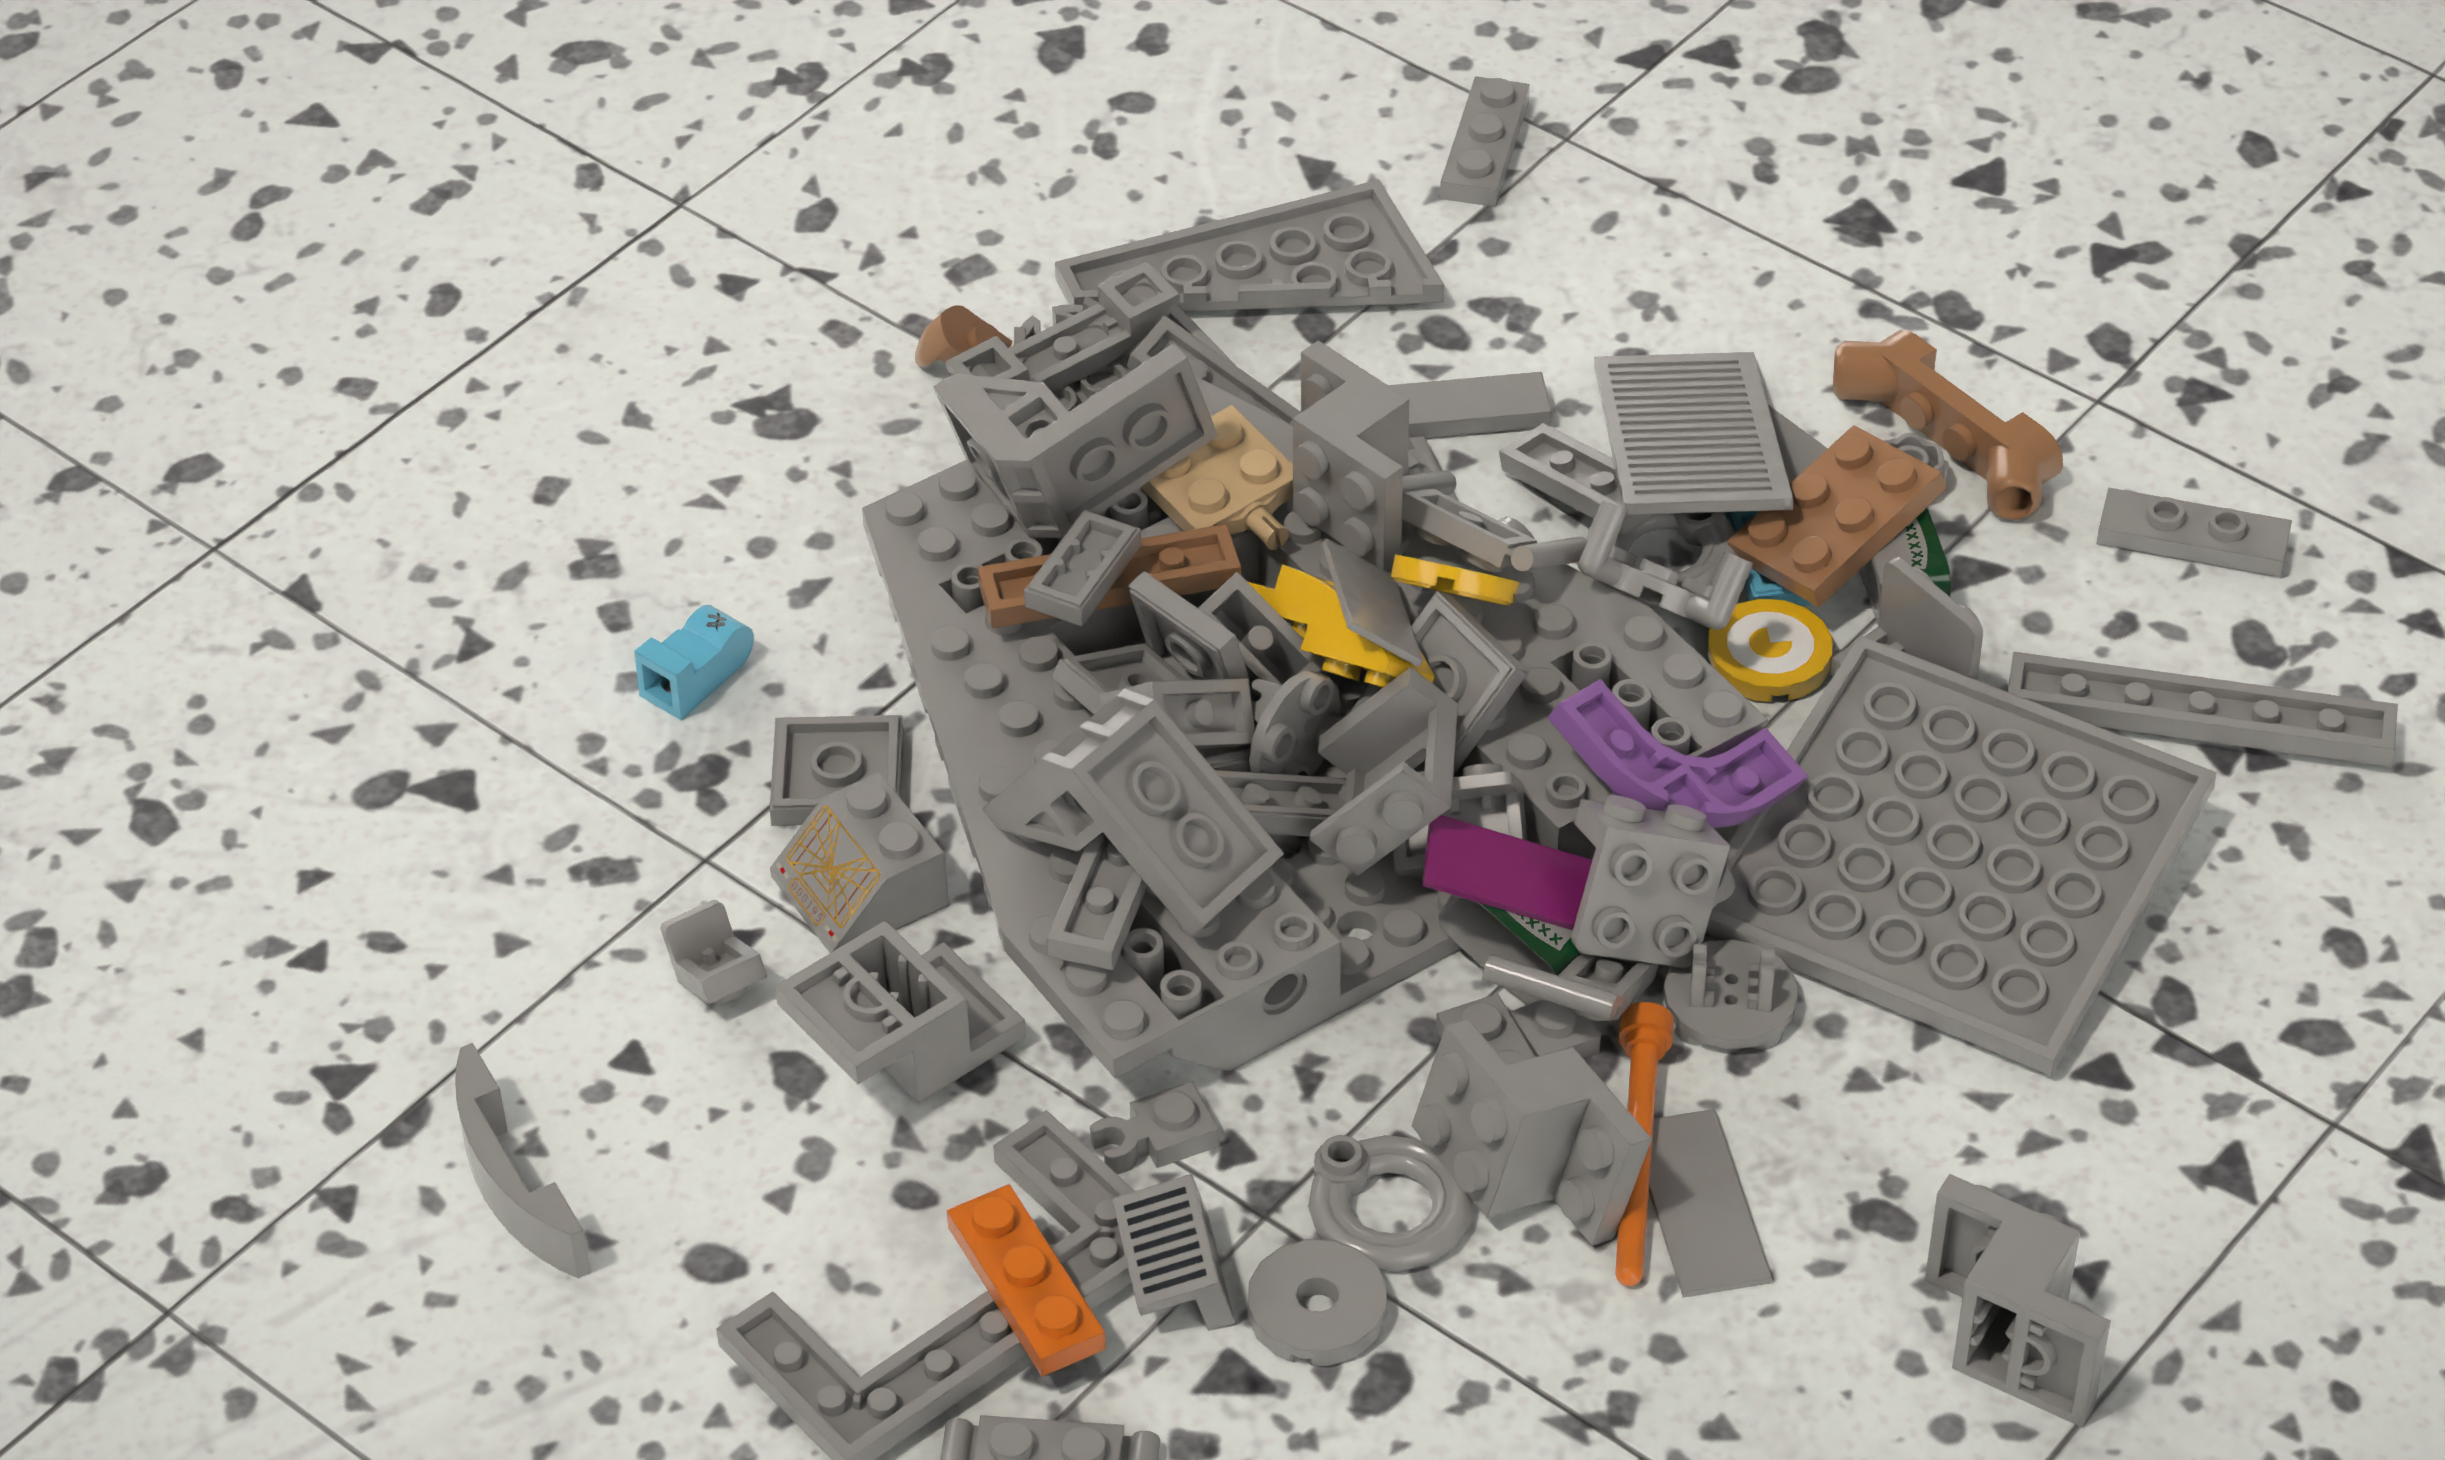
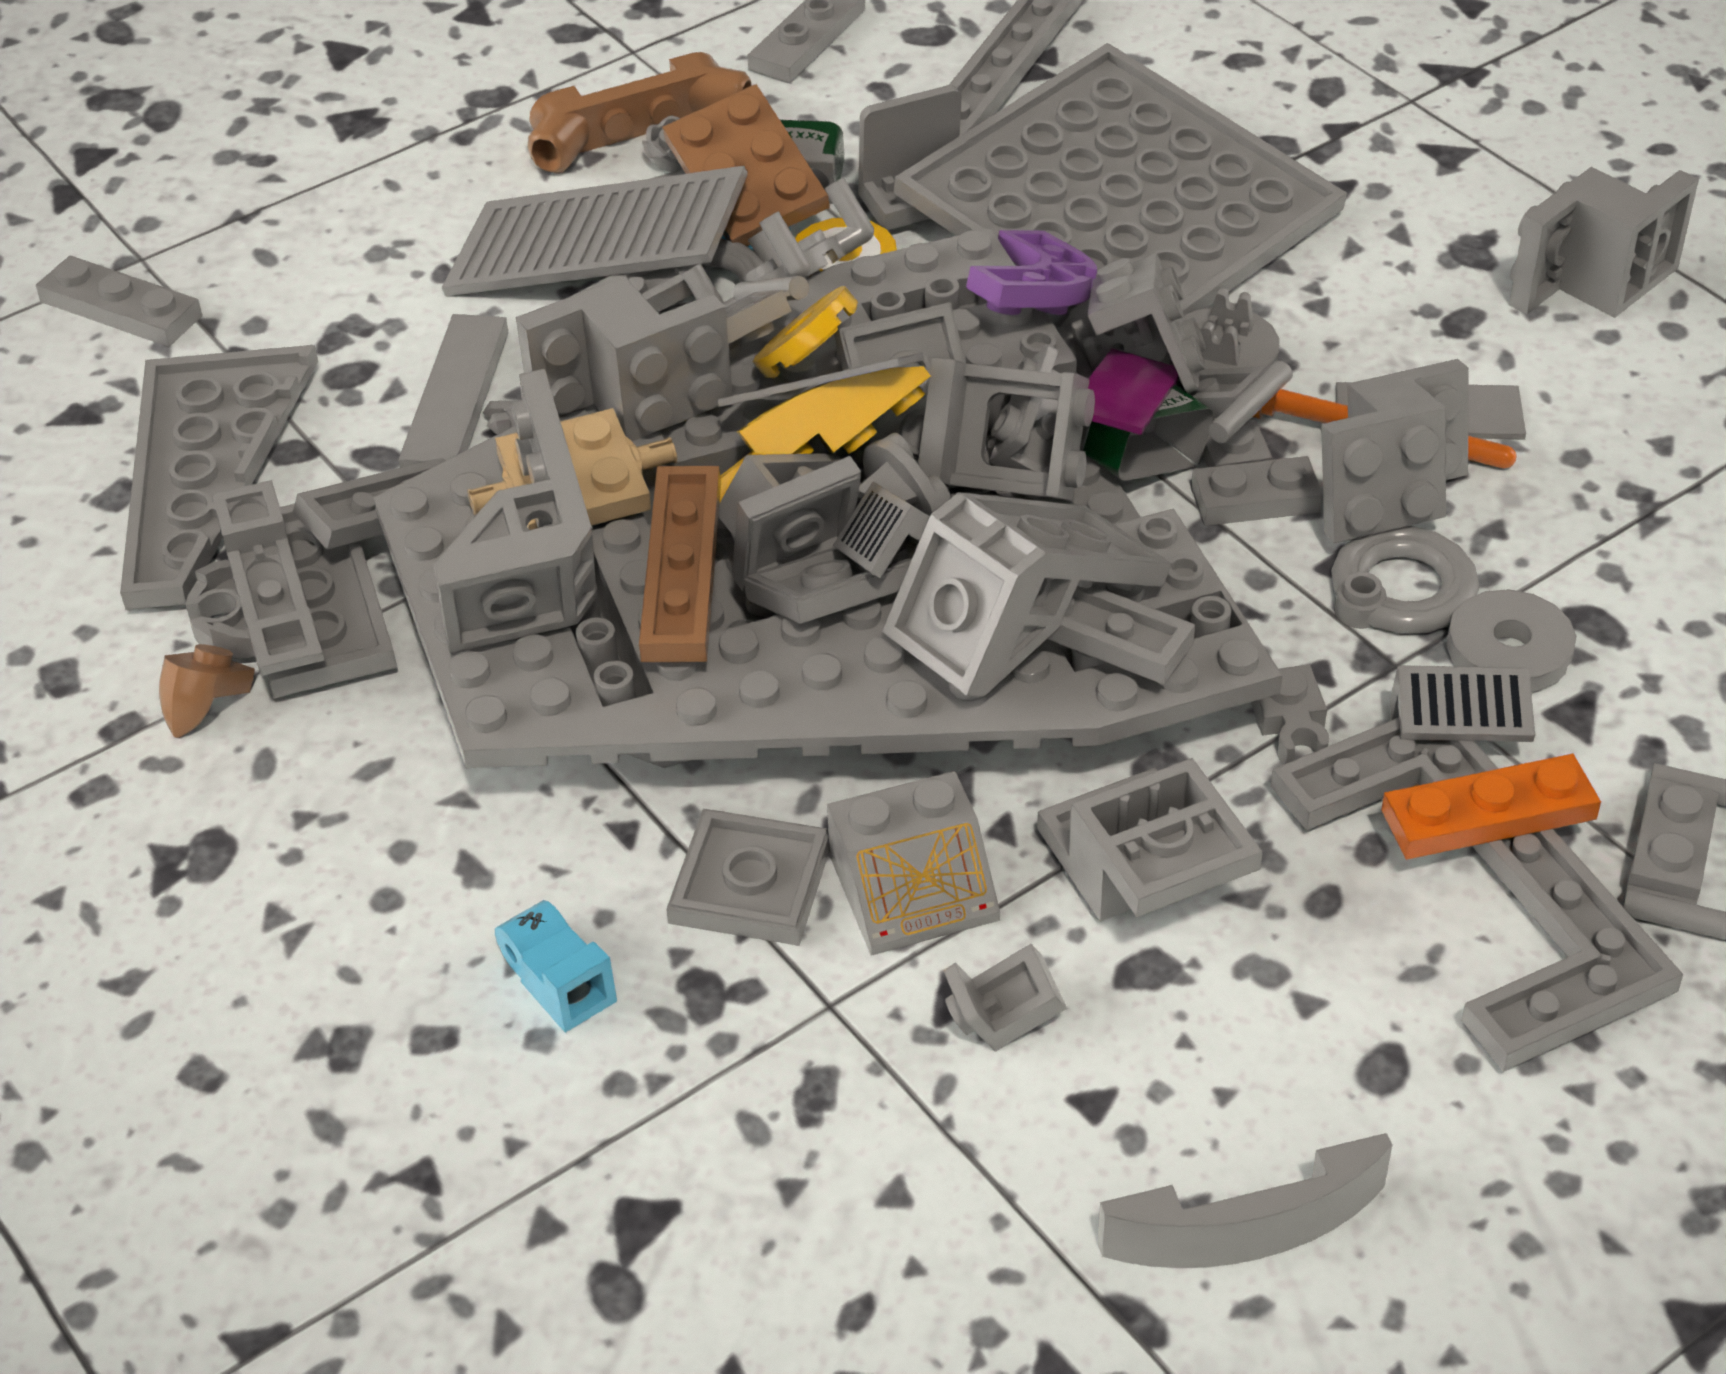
camera: 75 degrees left, 0 degrees up
(1082, 568) = (696, 555): light grey plate -> none

